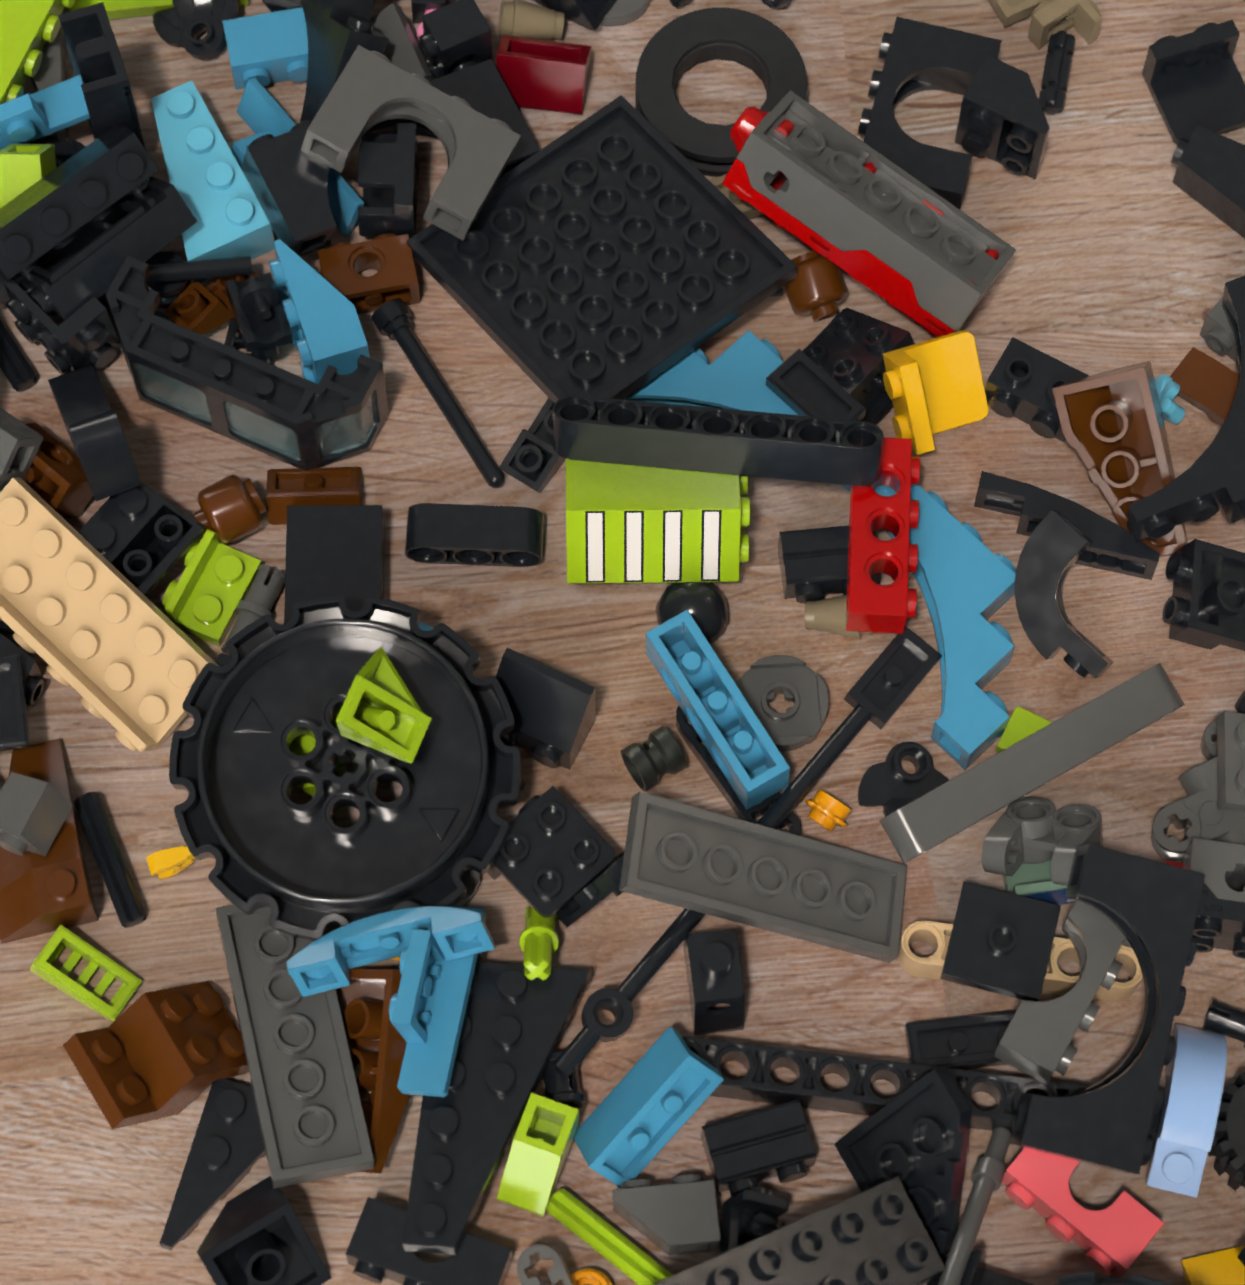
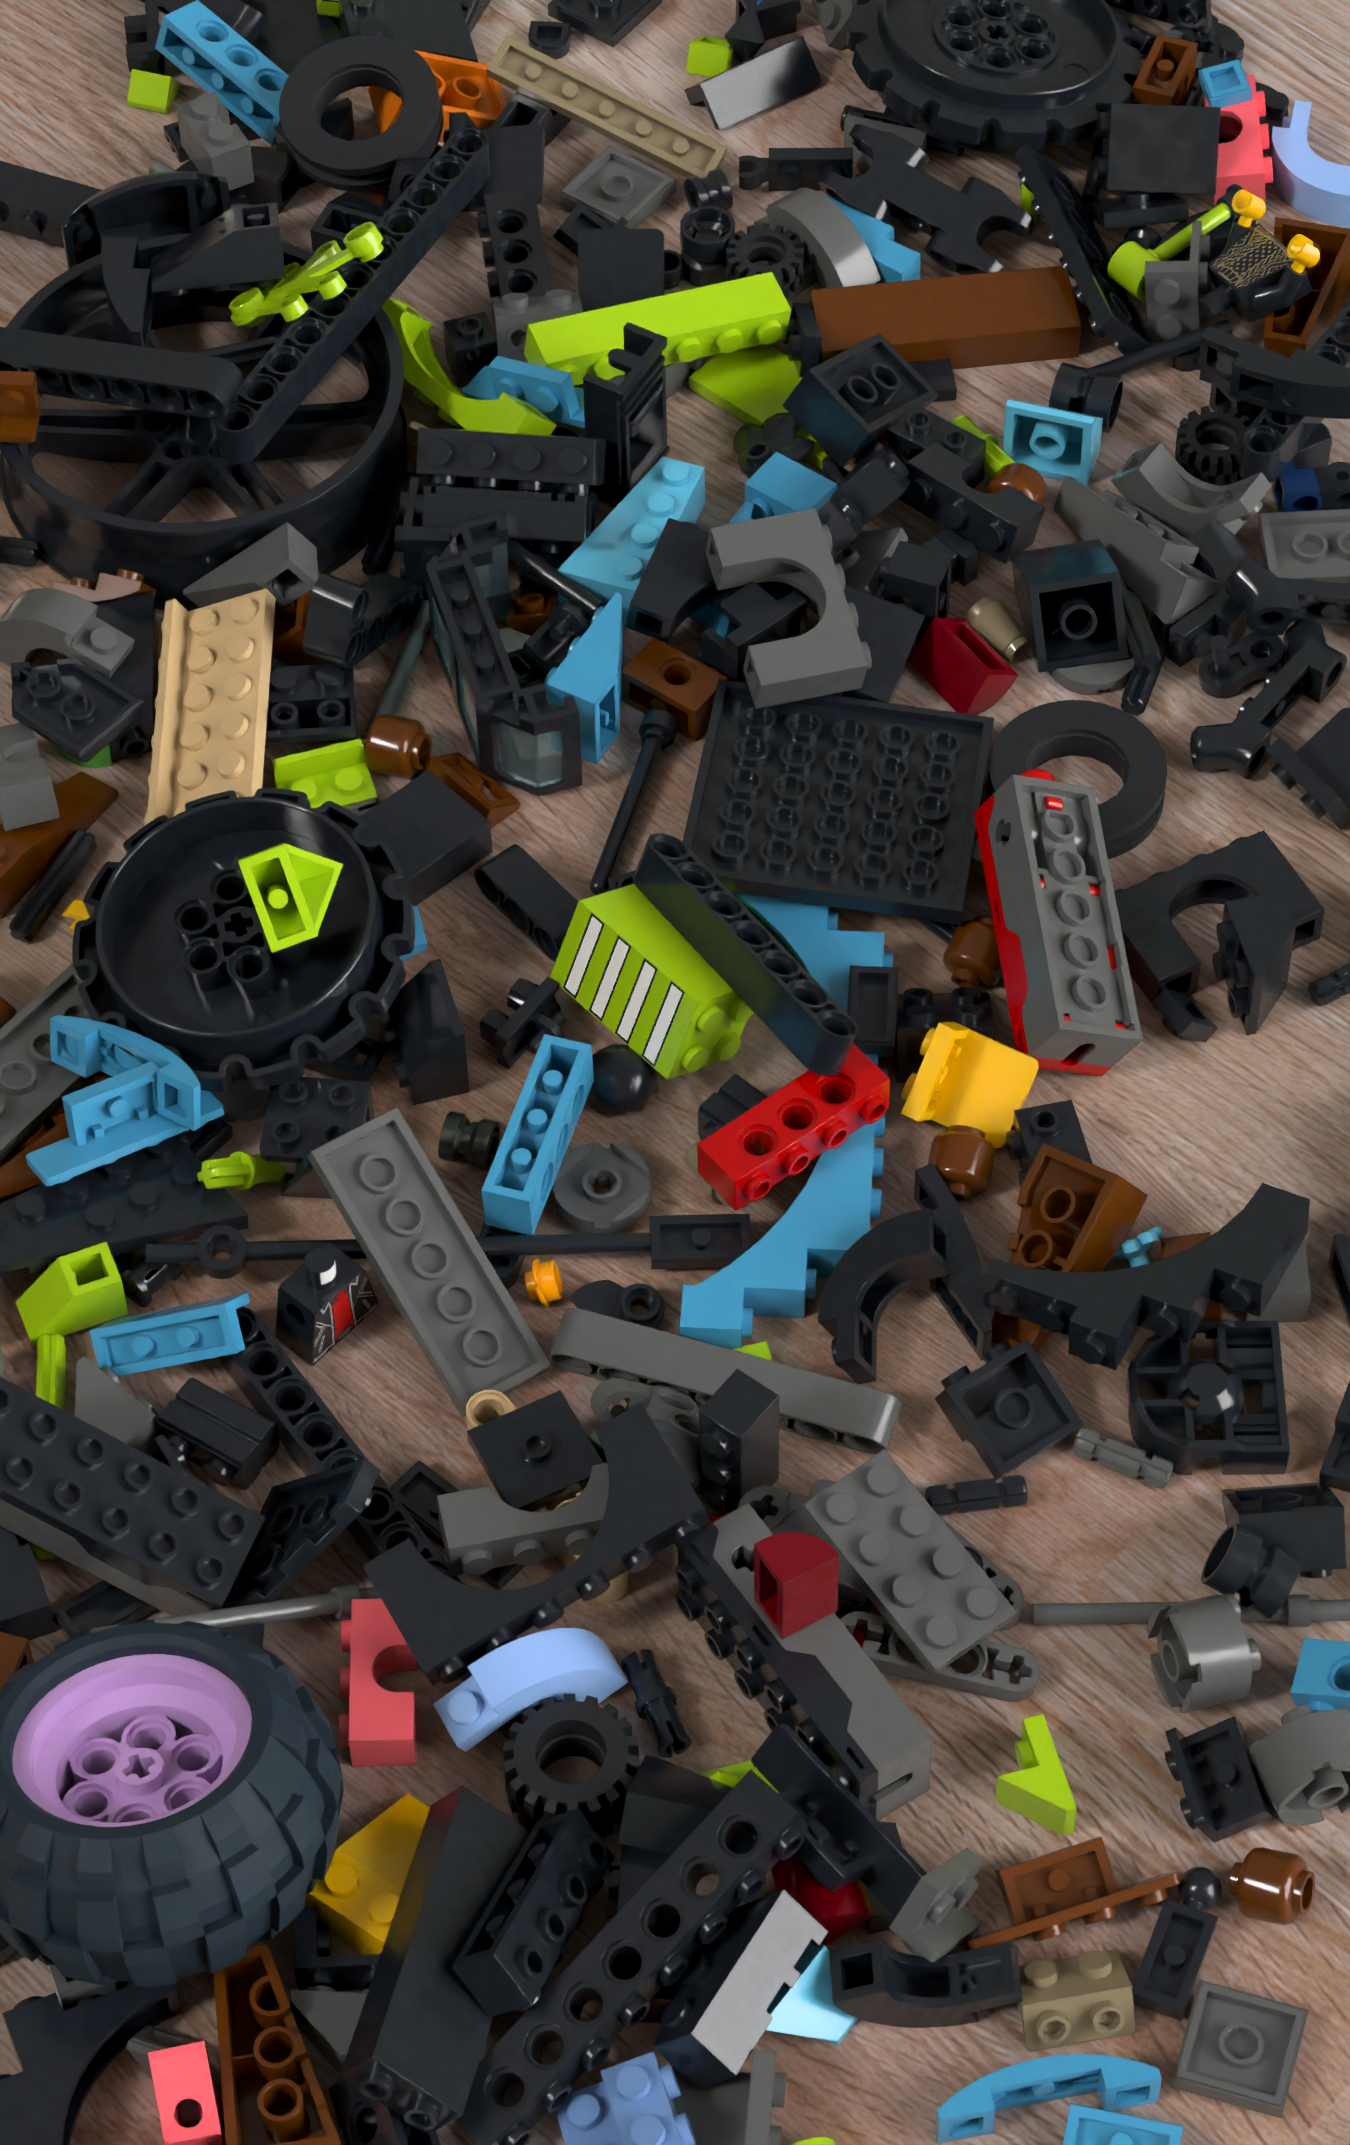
camera: 50 degrees right, 15 degrees down
(147, 442) = (404, 663): none -> dark grey bar
(573, 611) = (535, 1015): none -> black hips
(986, 448) = (963, 1160): none -> reddish brown head
(994, 204) = (1184, 1016): none -> black plate
(1128, 797) = (738, 1441): none -> black brick

